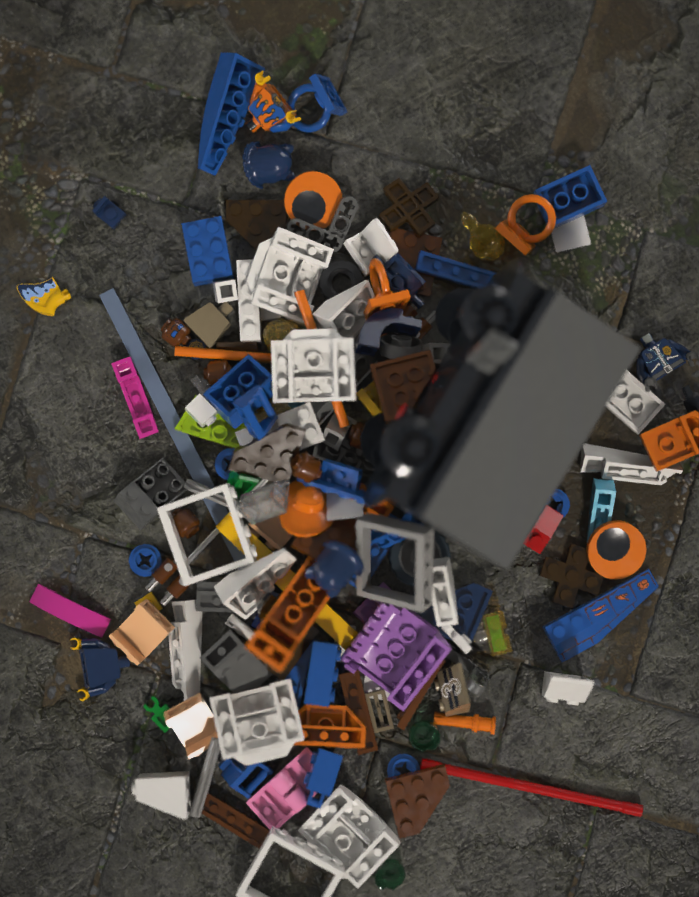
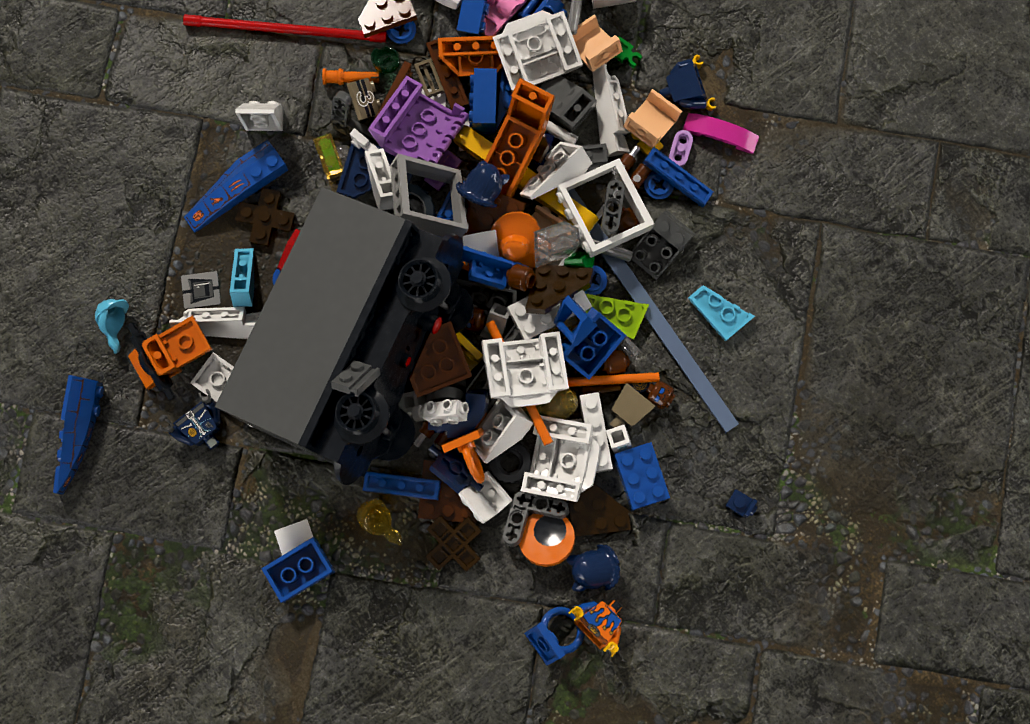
camera: 175 degrees right, 5 degrees down
(43, 296) = (790, 416): yellow arm -> none
(101, 413) = (720, 313): none -> medium azure wing
(116, 596) = (680, 149): none -> lavender plate
(123, 564) = (678, 177): none -> blue tile
(135, 397) = (689, 330): dark pink slope -> none
(199, 546) = (605, 219): none -> dark grey beam
(201, 411) = (625, 321): white brick -> none
(225, 108) = (643, 619): blue wedge -> none
(407, 331) = (441, 412): none -> white brick
(519, 235) = (346, 526): orange tile -> none
(616, 549) = (225, 243): orange piece -> none
(646, 505) = (200, 289): none -> sticker

